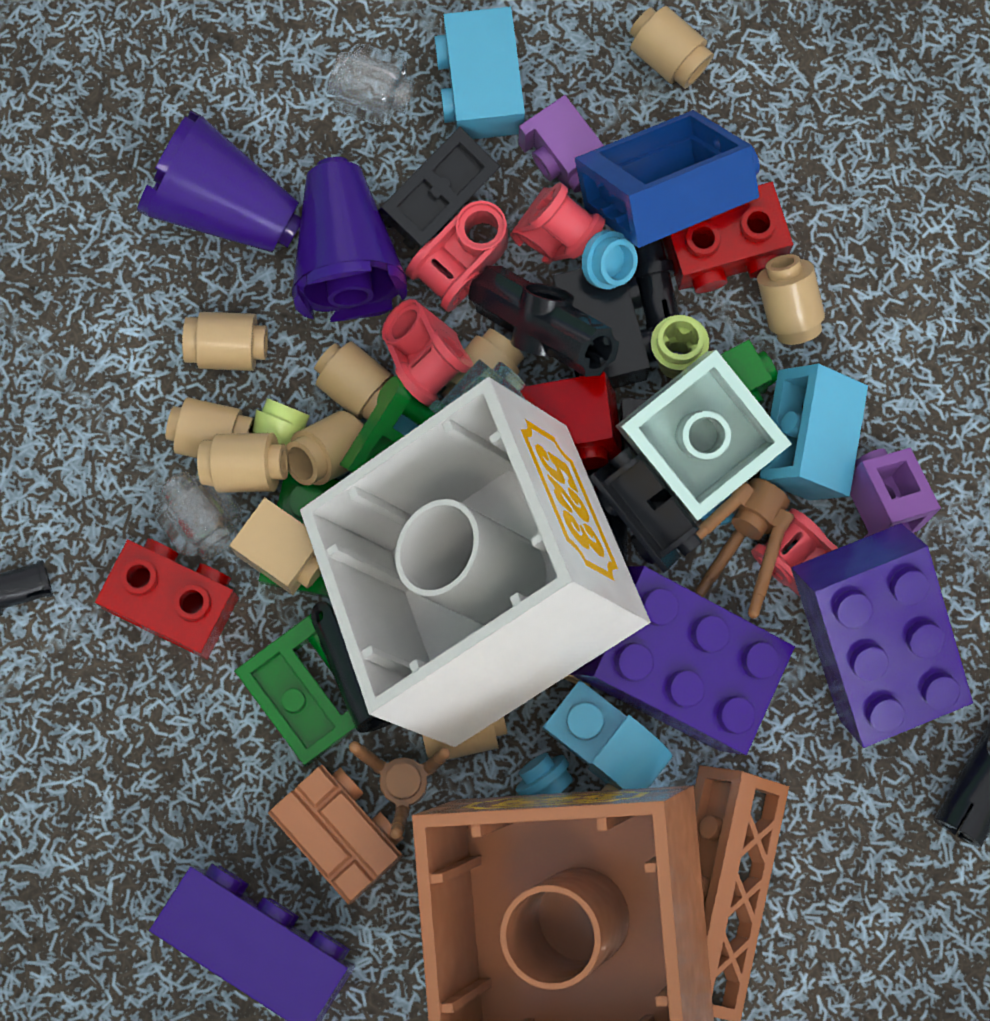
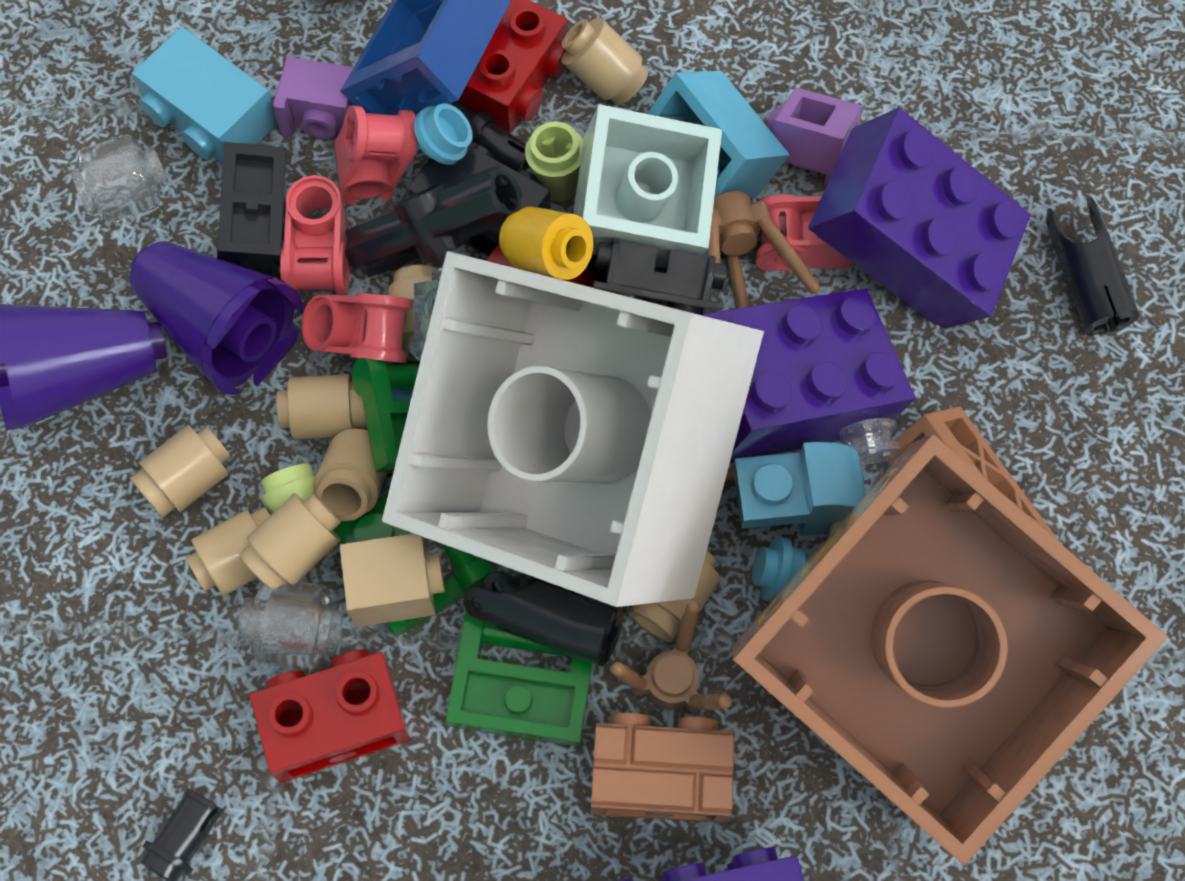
camera: 45 degrees left, 10 degrees down
(588, 416) = (547, 242): none -> yellow brick
(692, 753) = (872, 440): none -> clear bush

